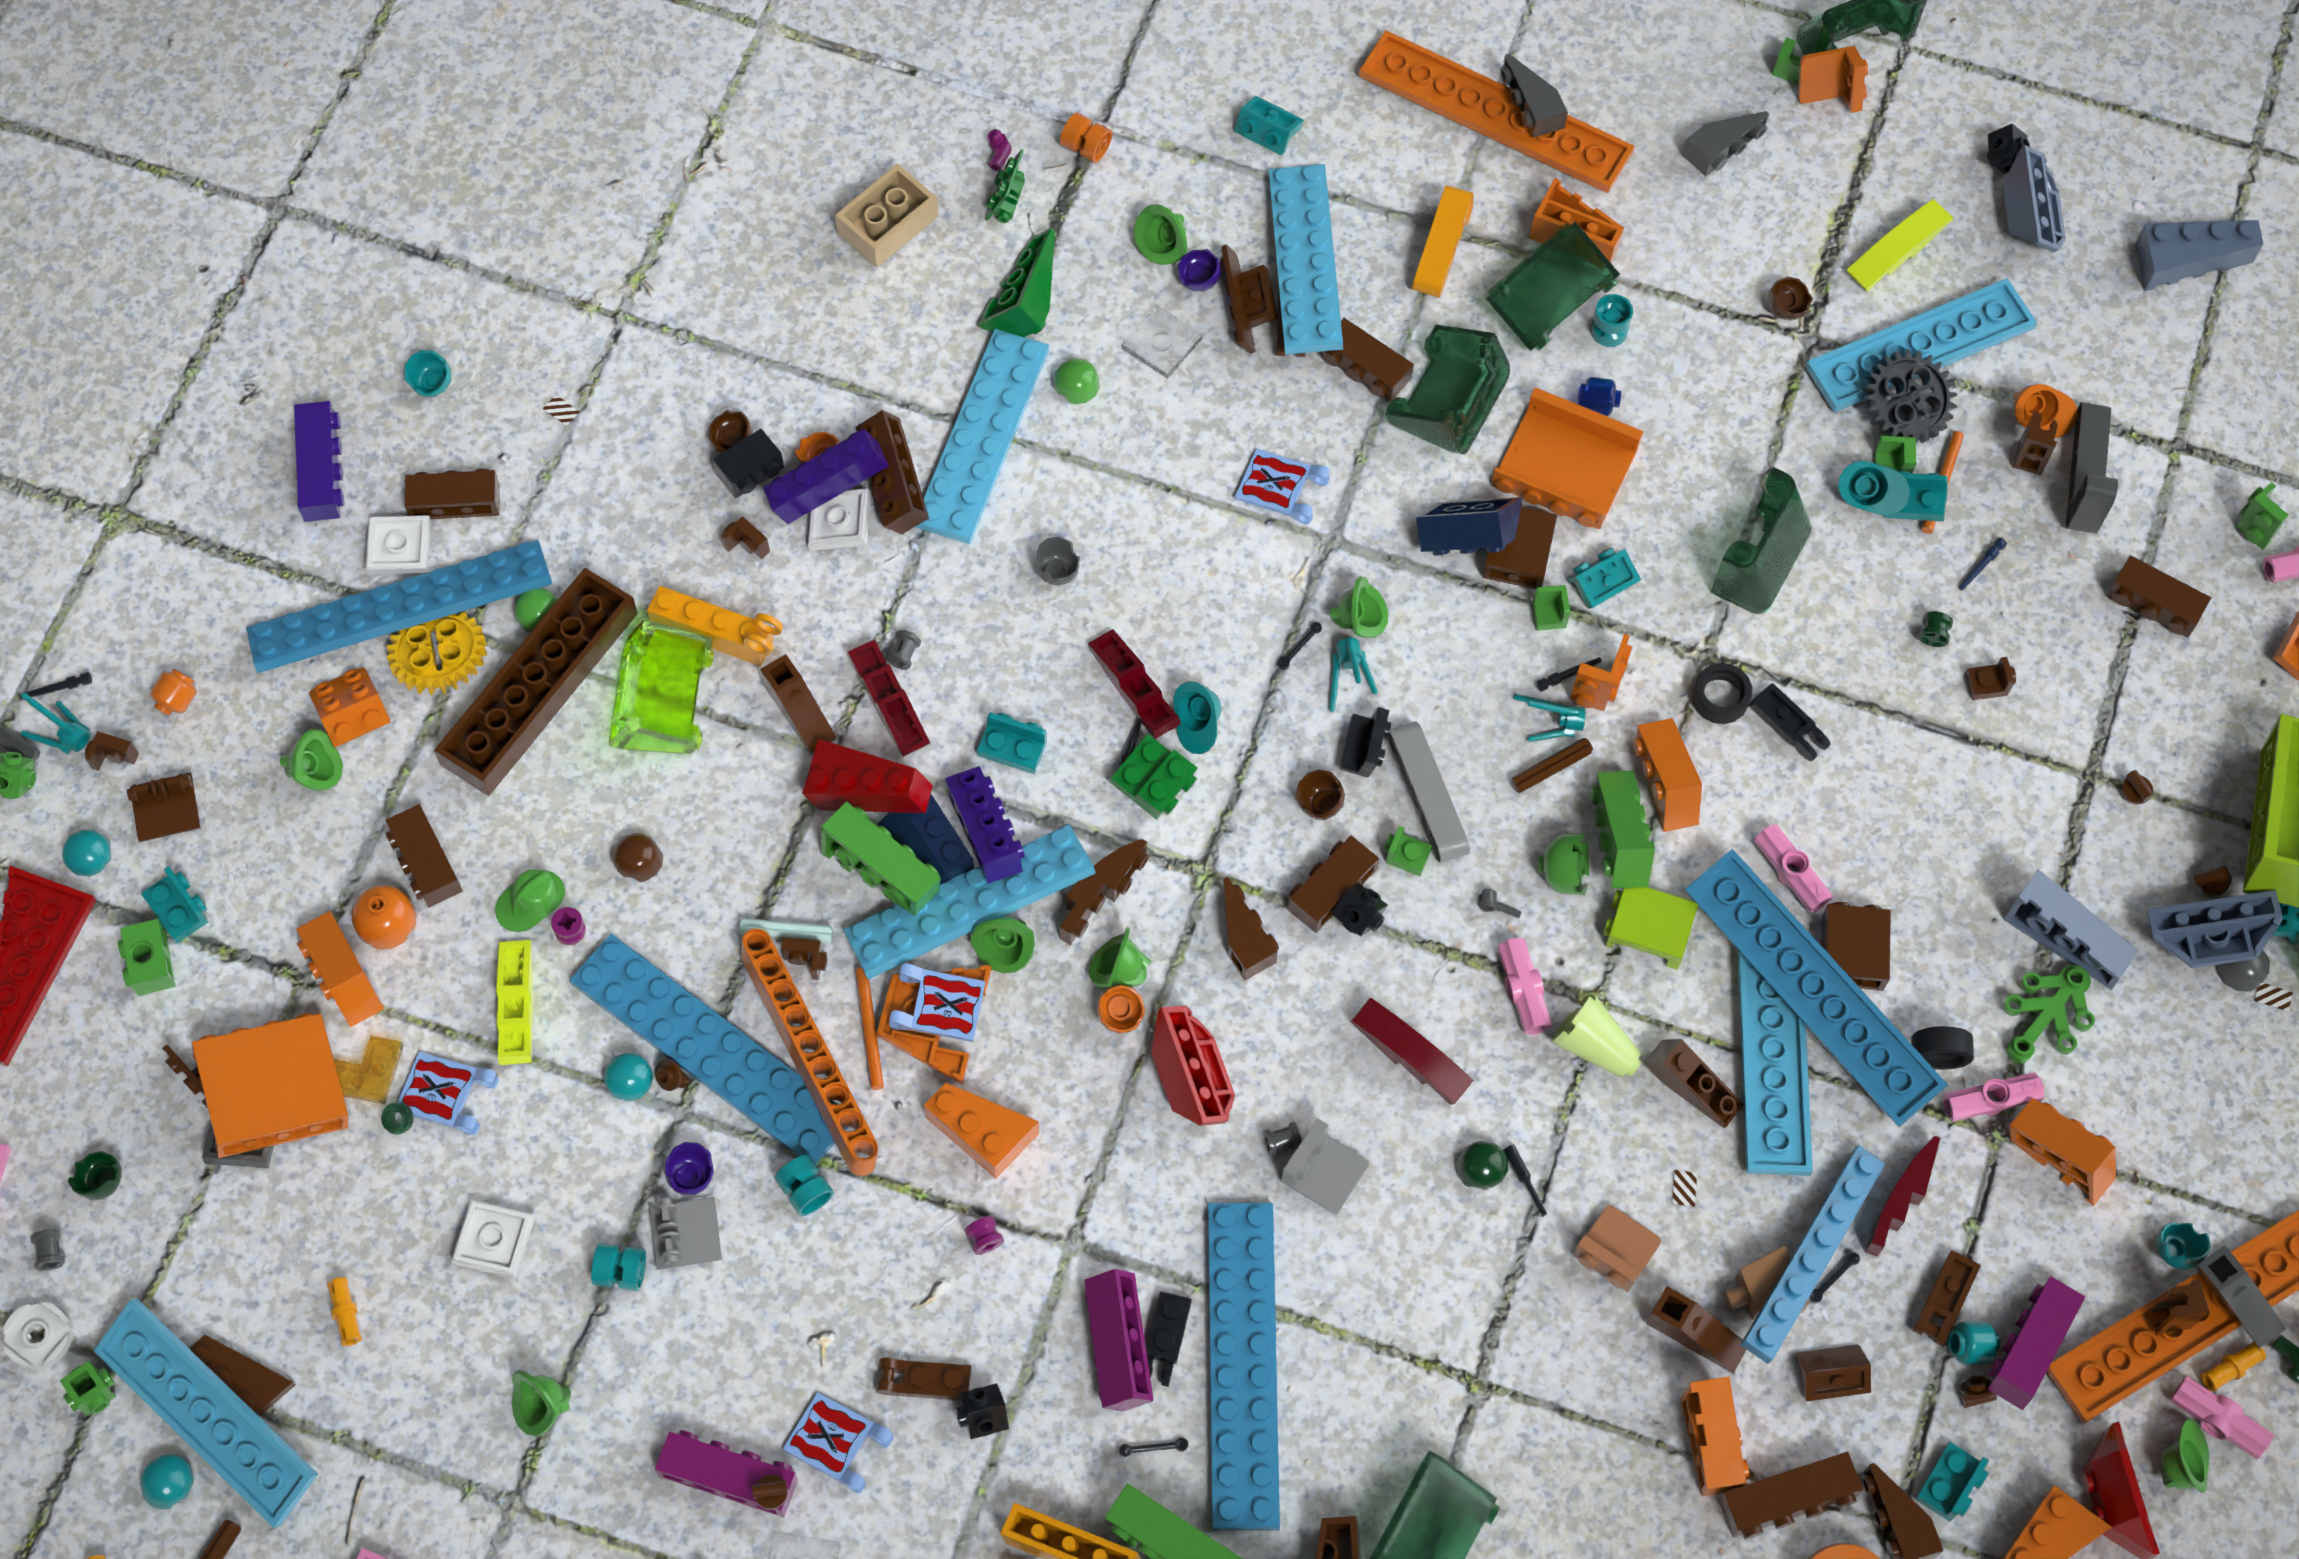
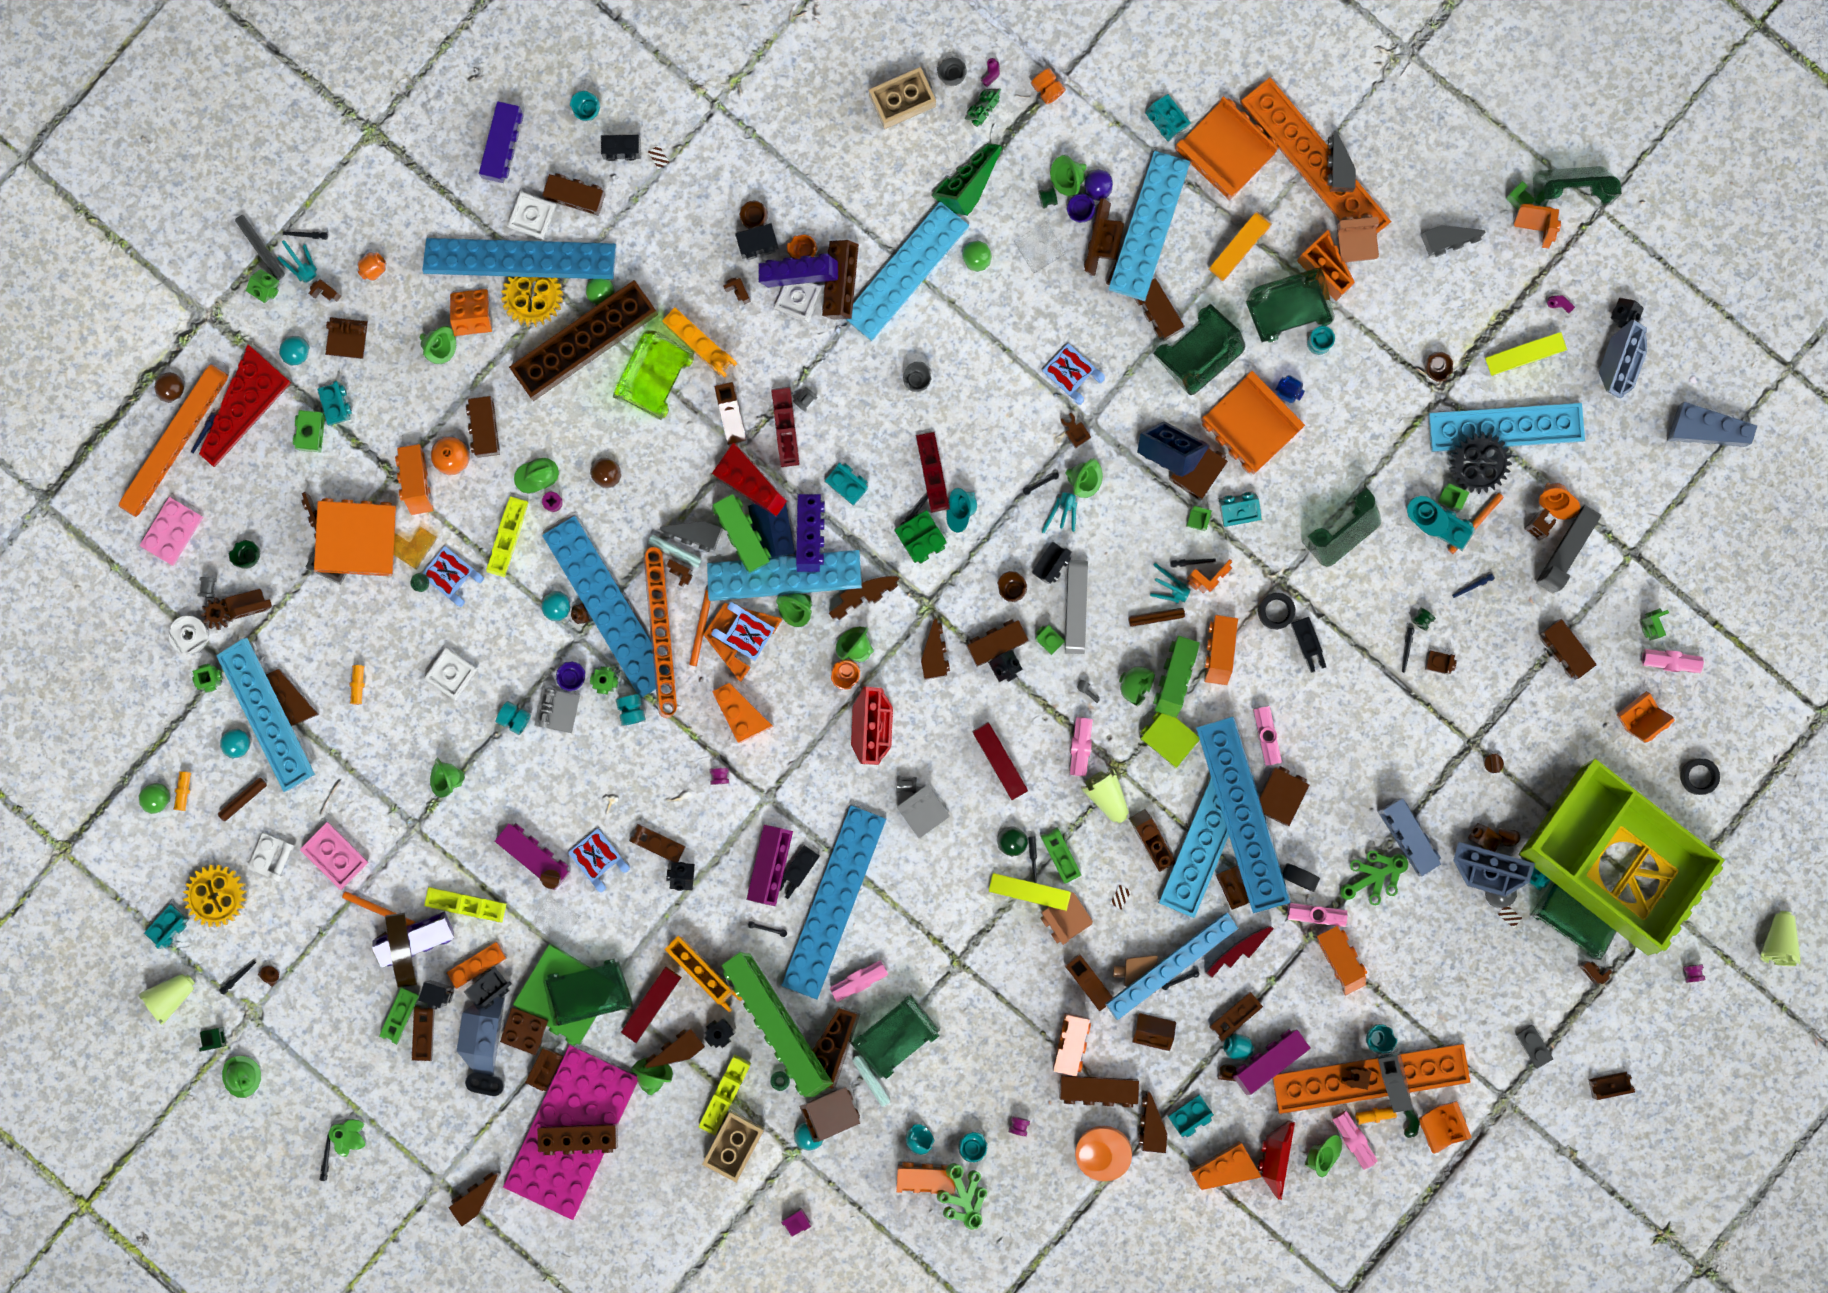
camera: 25 degrees right, 20 degrees up
(71, 1296) = (210, 611): none -> reddish brown gear
(123, 1250) = (247, 604): none -> reddish brown panel
(500, 409) = (620, 147): none -> black brick
(745, 1166) = (609, 685): none -> bright green brick
(812, 890) = (699, 533): none -> dark grey slope
(944, 163) = (952, 71): none -> dark grey hair
(1146, 273) = (1047, 197): none -> dark green wheel
(1209, 233) = (1098, 184): none -> dark purple hair
(1320, 558) = (1077, 433): none -> reddish brown plate
(1334, 1471) = (858, 981): none -> bright pink piece
(1368, 133) = (1227, 148): none -> orange panel
(1543, 1227) = (1029, 891): none -> neon yellow slope
(1567, 1157) = (1061, 856): none -> bright green plate
(1600, 174) = (1358, 238): none -> nougat bracket
(1849, 1104) = (1233, 887): none -> reddish brown panel
(1911, 169) = (1560, 301): none -> magenta arm
(1930, 668) = (1409, 639): none -> black piece
(2178, 890) = (1485, 837): none -> reddish brown bracket

